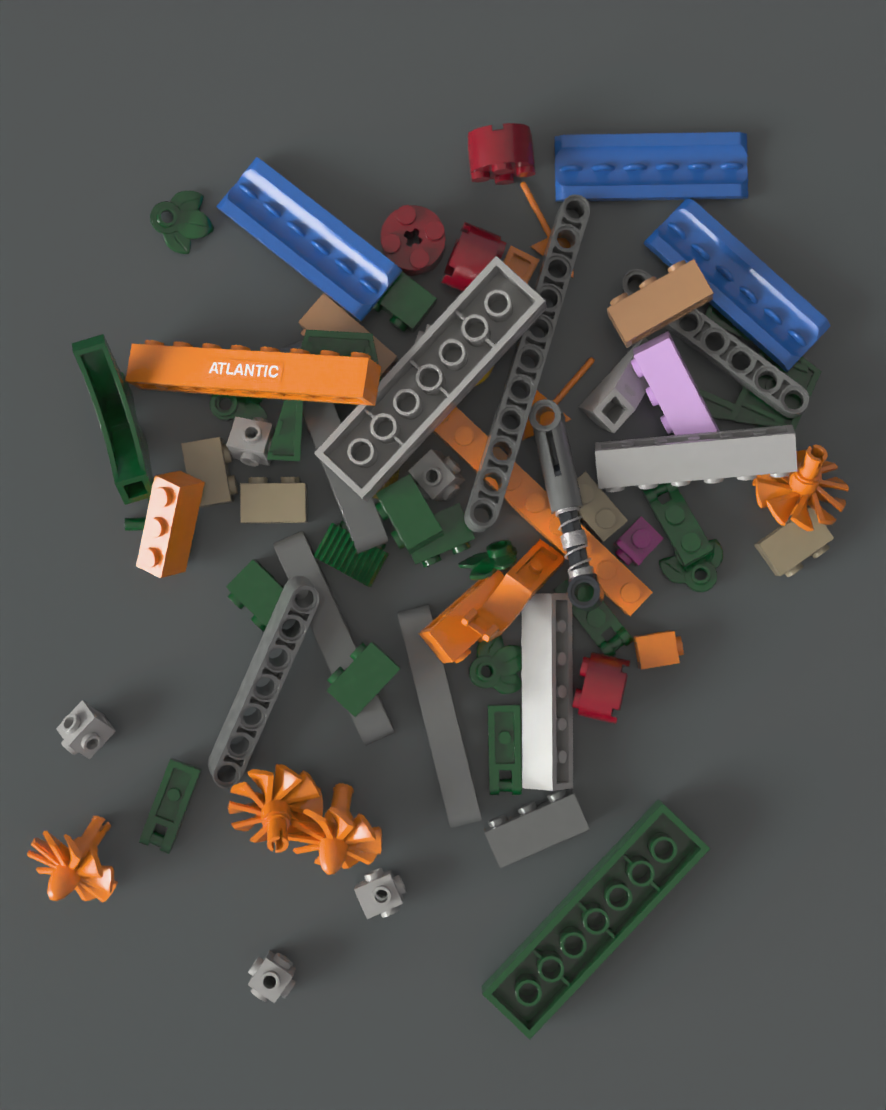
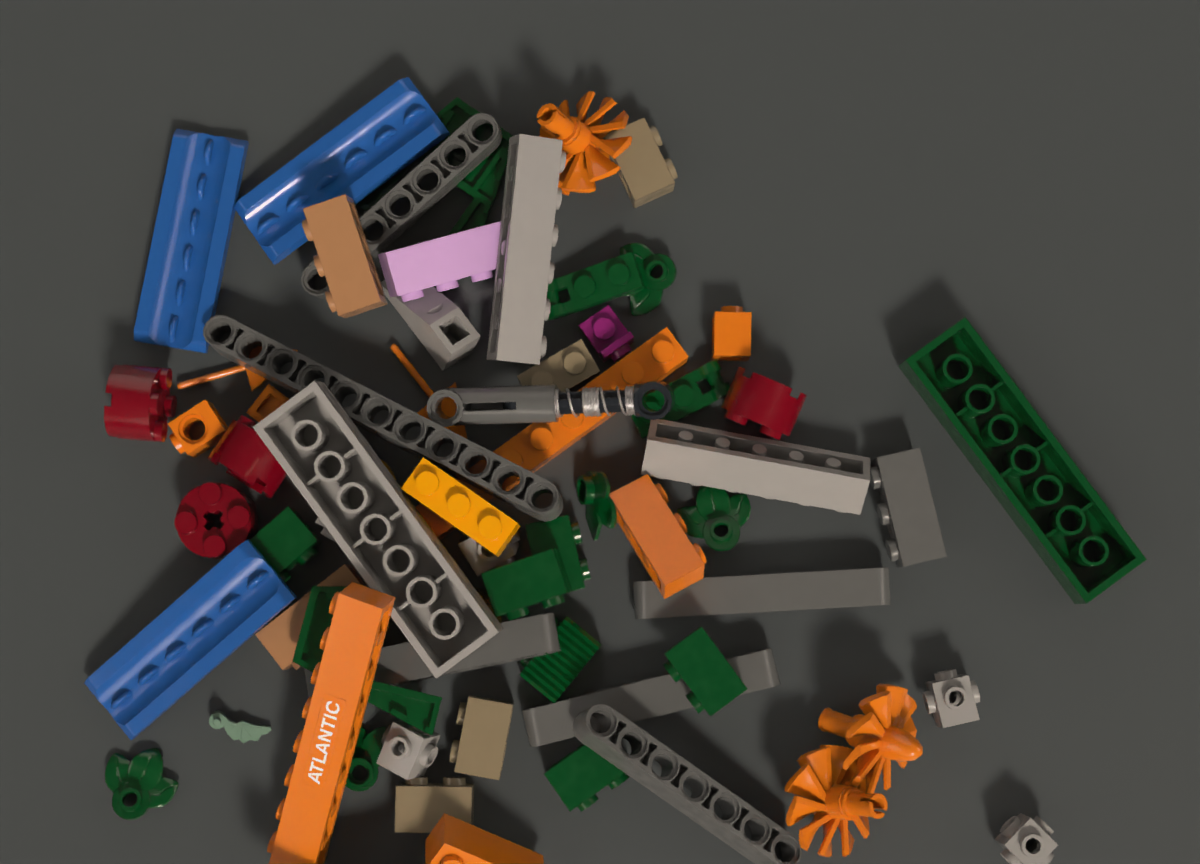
camera: 85 degrees left, 5 degrees down
(241, 296) = (238, 730): none -> sand green piece
(462, 445) = (460, 507): none -> light orange brick
(495, 220) = (214, 429): none -> orange brick
(504, 748) = (811, 526): dark green plate -> none
(515, 591) = (637, 480): orange piece -> none

